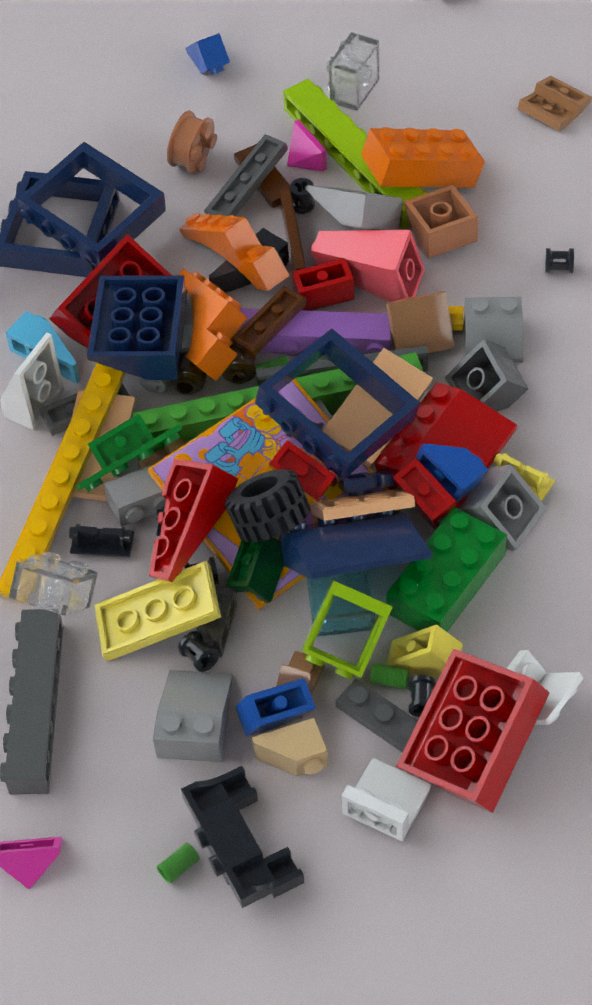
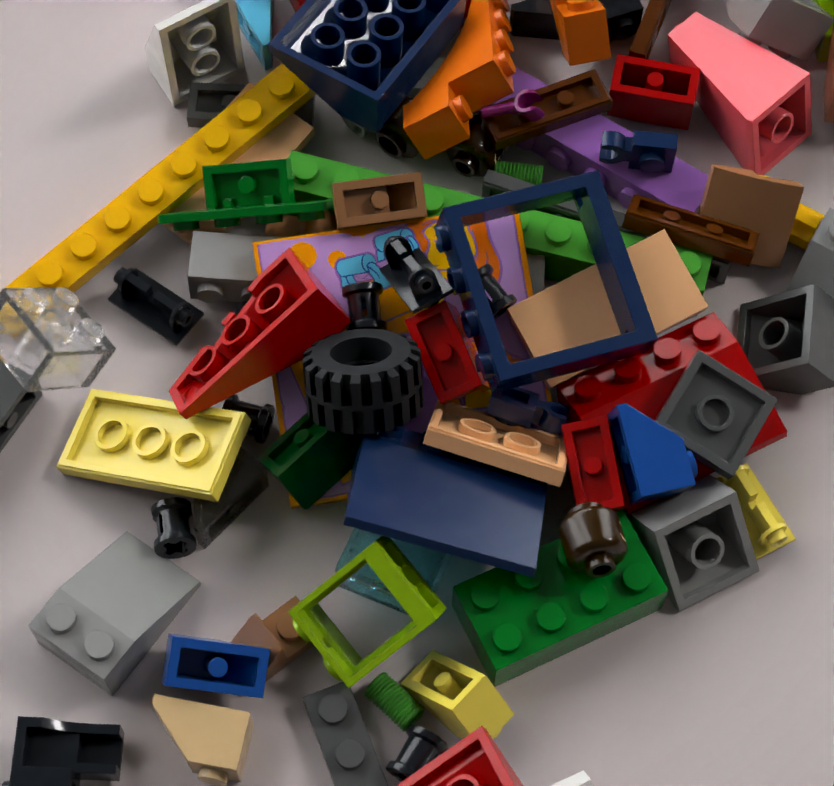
camera: 25 degrees right, 10 degrees up
(210, 408) = (379, 200): none -> medium nougat slope
(238, 467) = (368, 293): none -> black bush
(255, 323) = (521, 104): none -> magenta hand
(258, 437) = (413, 275): none -> black hinge
(342, 316) = (644, 151): none -> dark blue plate
(399, 344) = (691, 229): none -> reddish brown tile
(451, 524) = (592, 539): none -> dark brown head
(474, 427) = (716, 413): none -> dark grey plate

